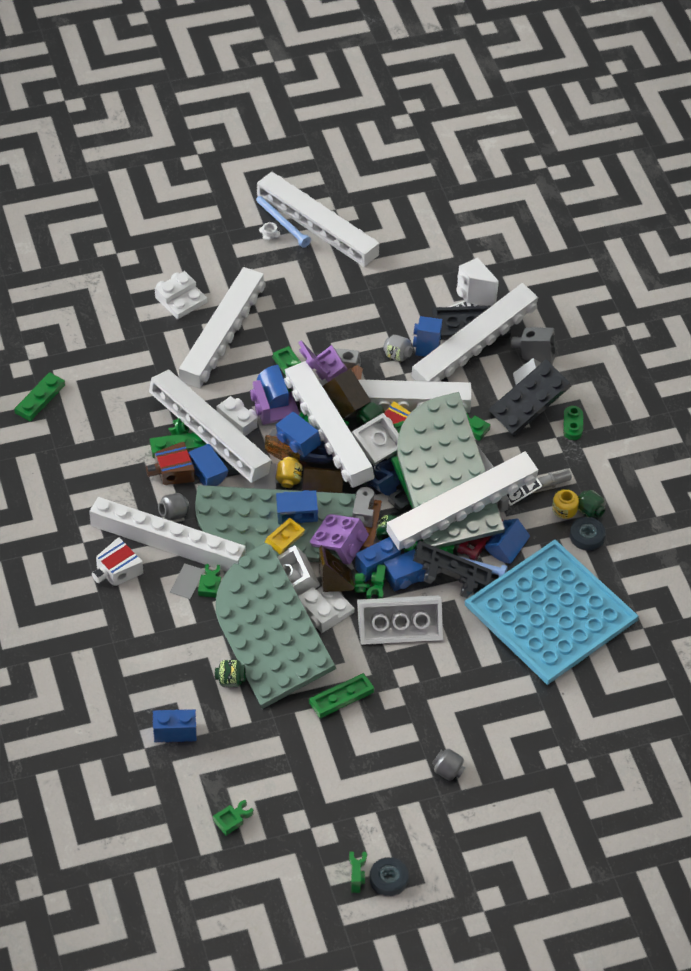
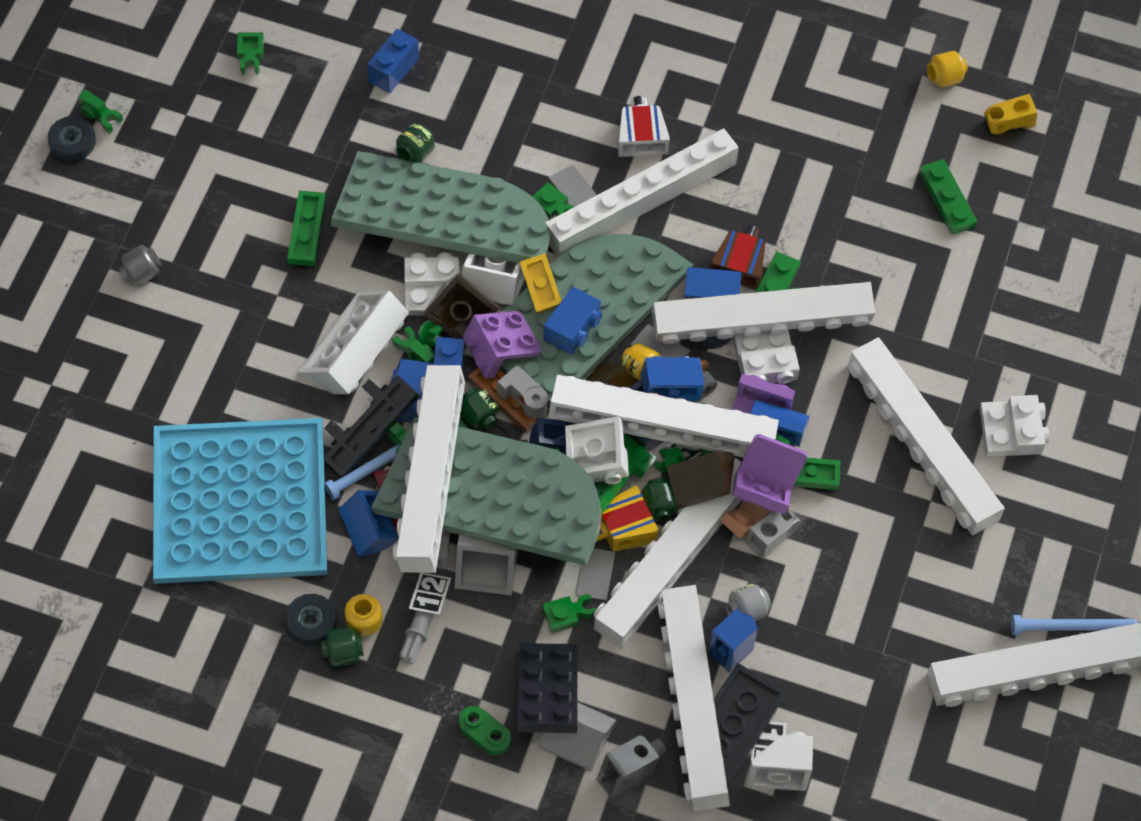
camera: 125 degrees right, 10 degrees up
(173, 506) = (679, 223): flat silver head -> none
(269, 231) = (1062, 589): white plate -> none

